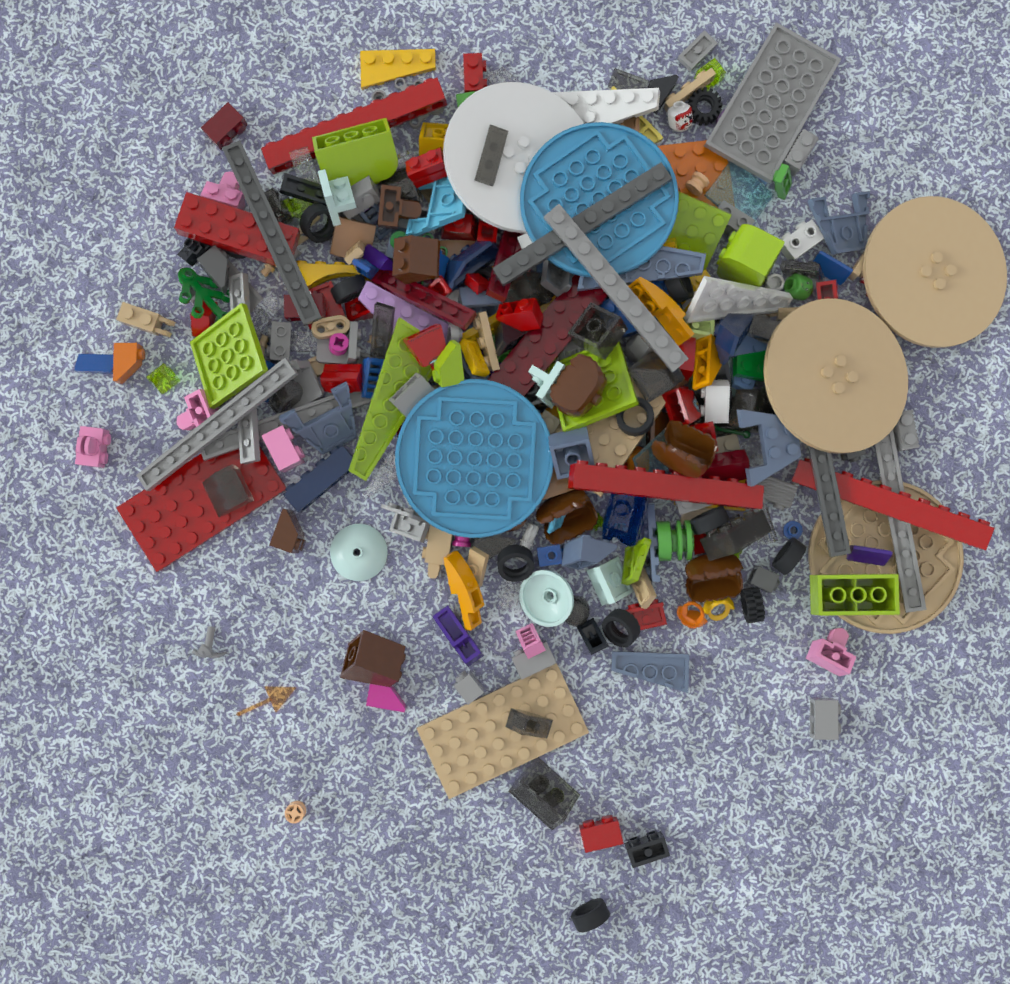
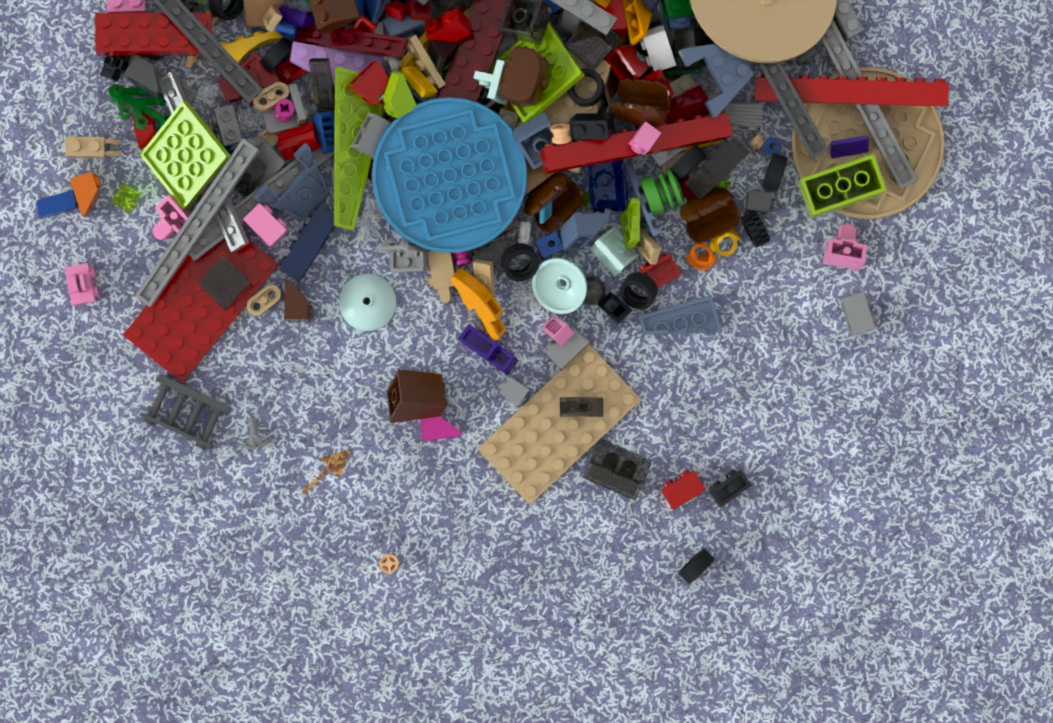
camera: 20 degrees left, 0 degrees up
(155, 581) = (183, 393): none -> dark grey fence
(261, 518) = (263, 299): none -> tan plate
(596, 454) = (561, 133): none -> light nougat wheel
(629, 456) = (592, 126): none -> black brick
(677, 485) = (644, 138): none -> bright pink brick
(779, 519) = (756, 141): none -> tan plate

